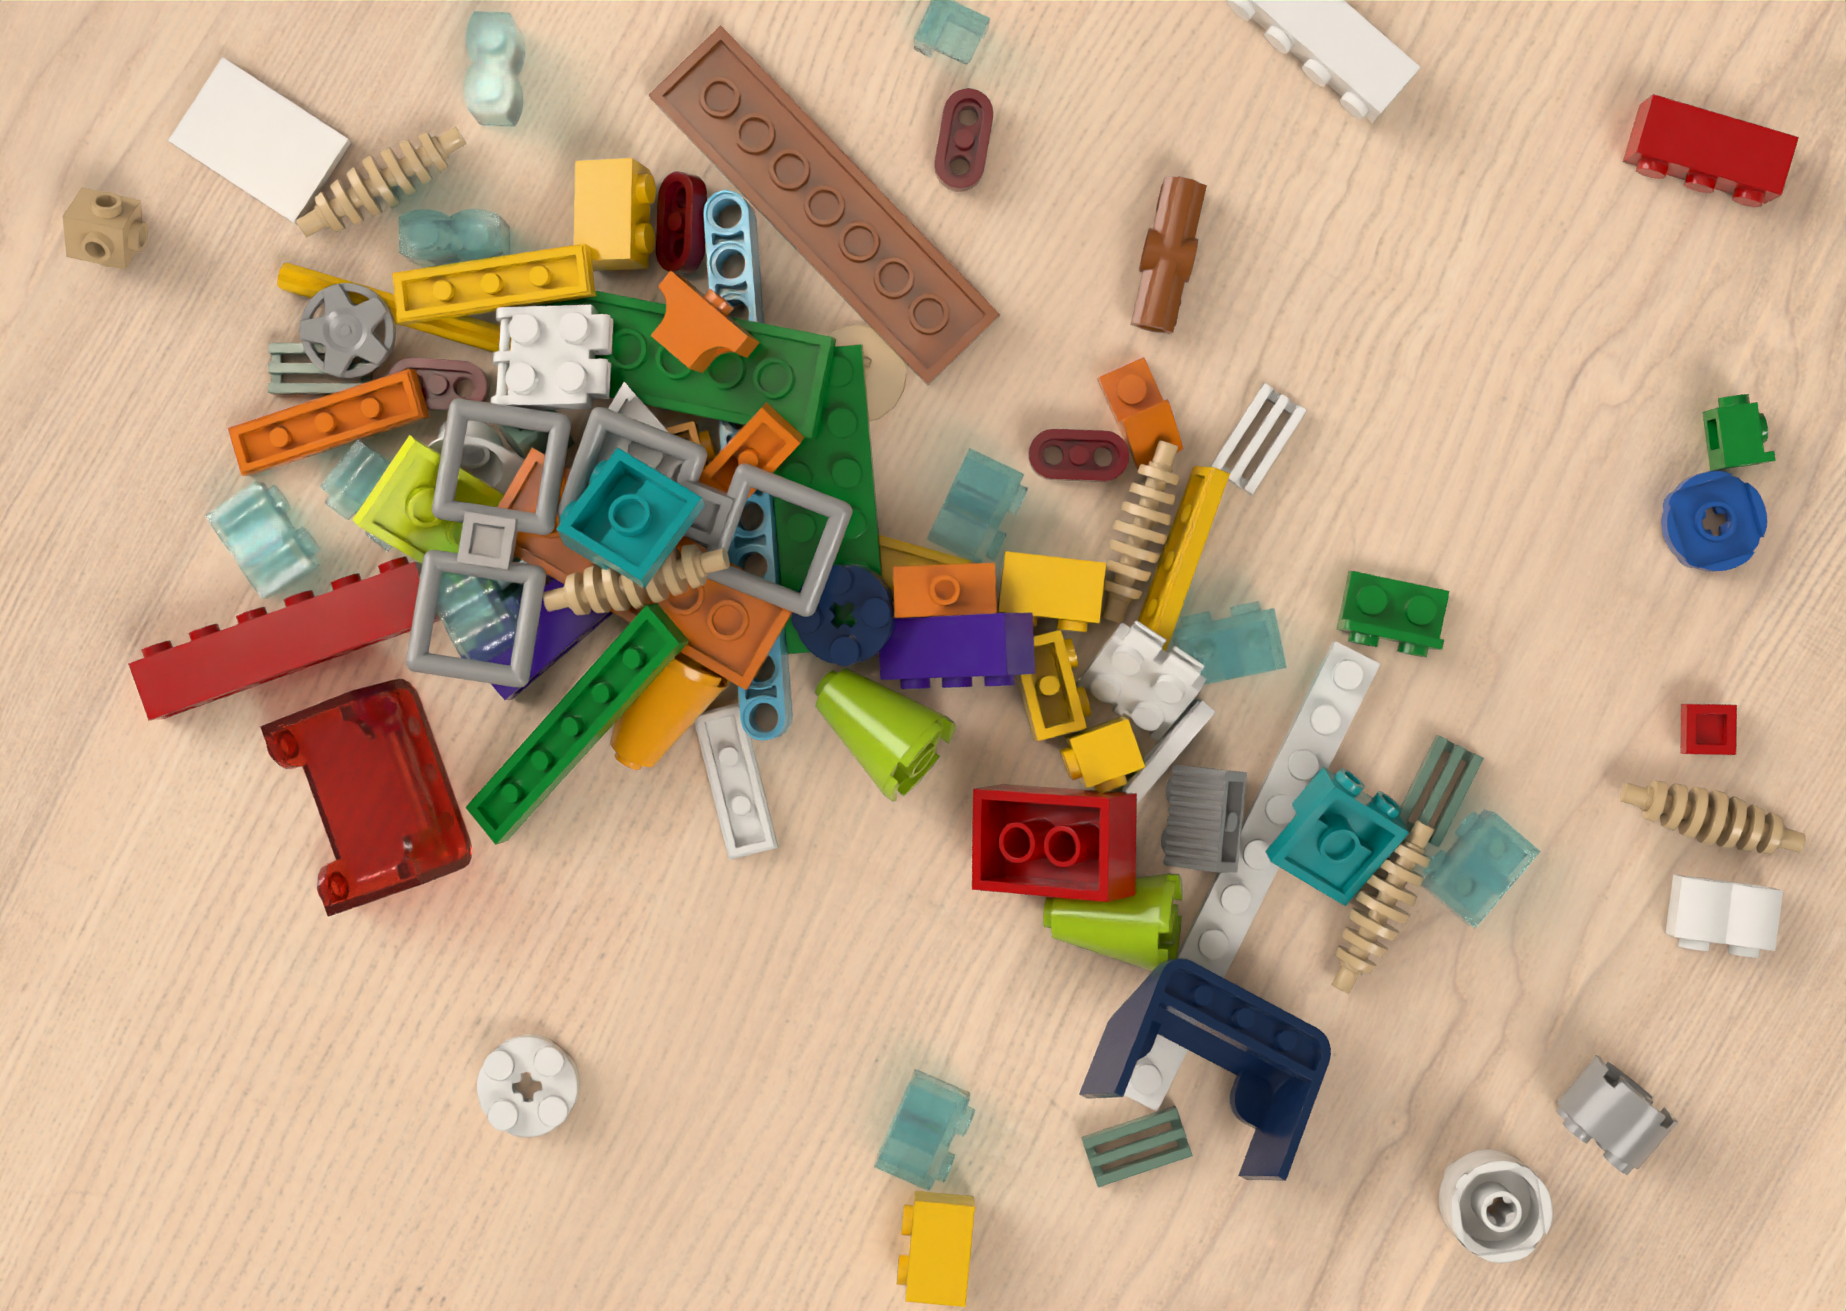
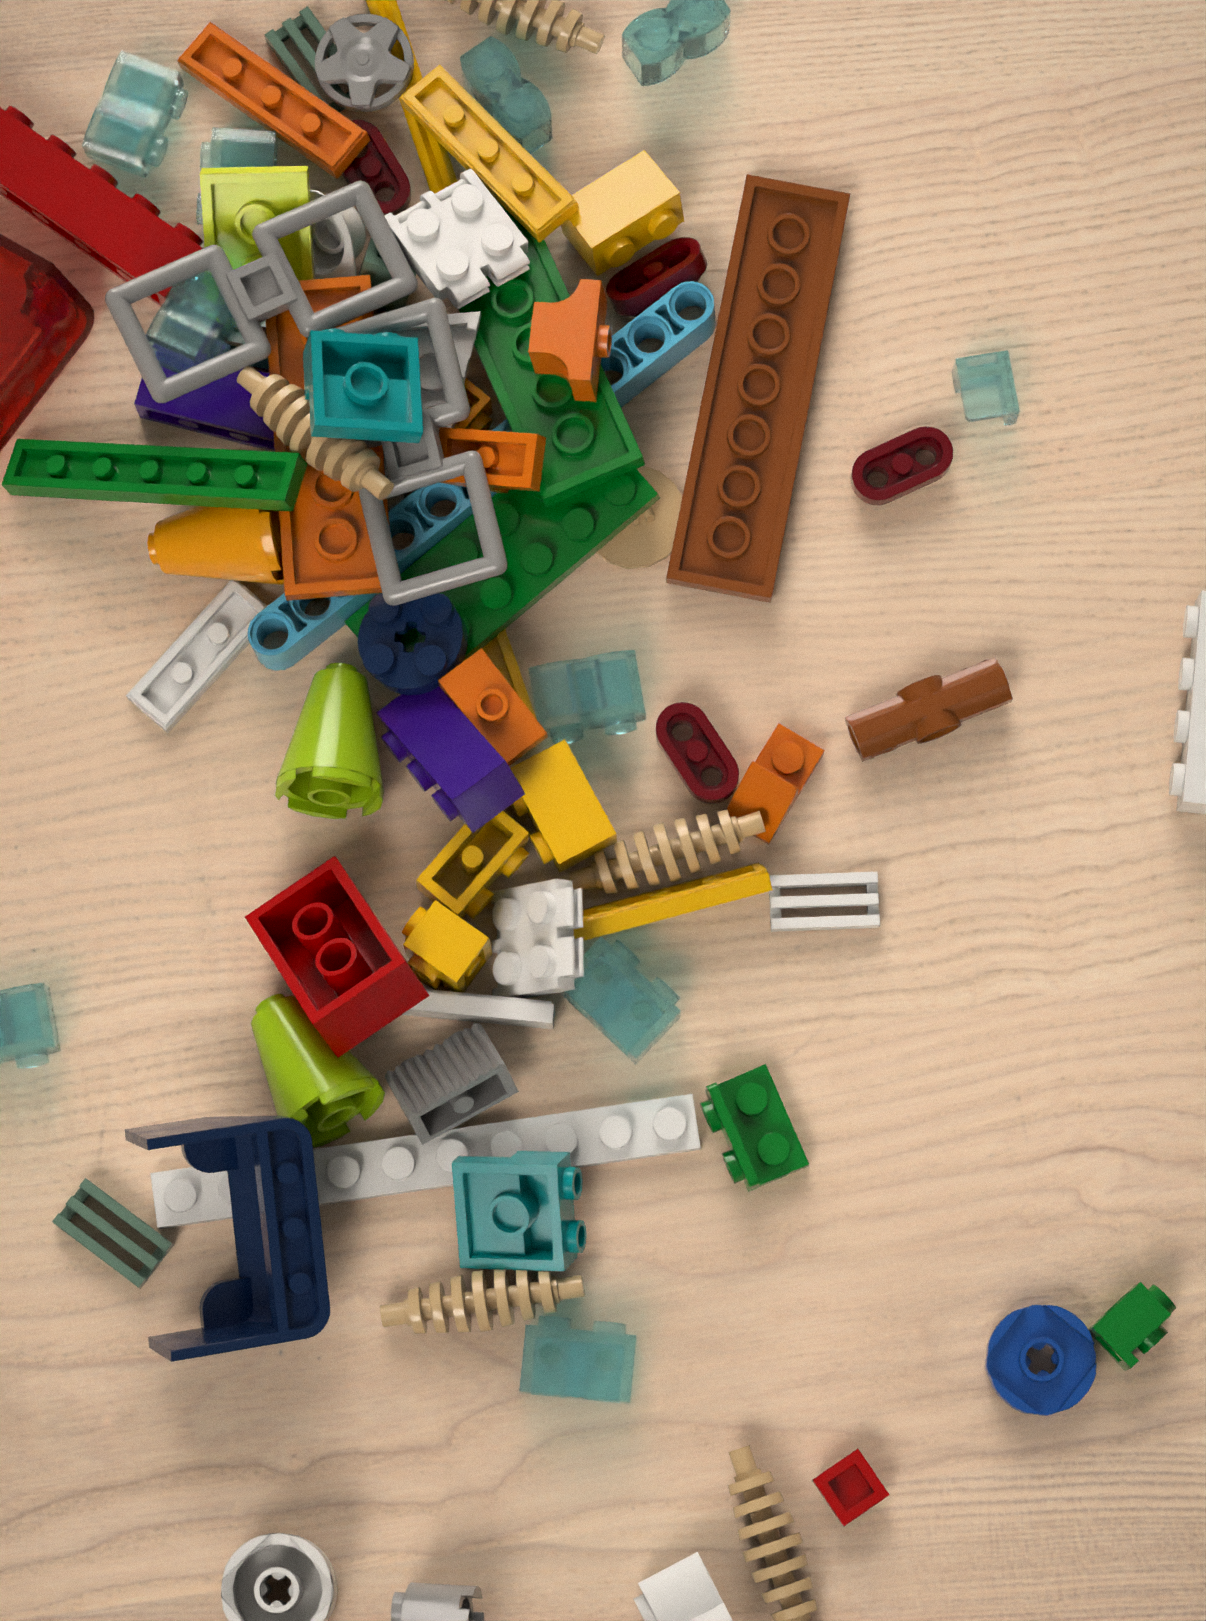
camera: 55 degrees right, 10 degrees down
(1456, 796) = (668, 1274): sand green tile -> none

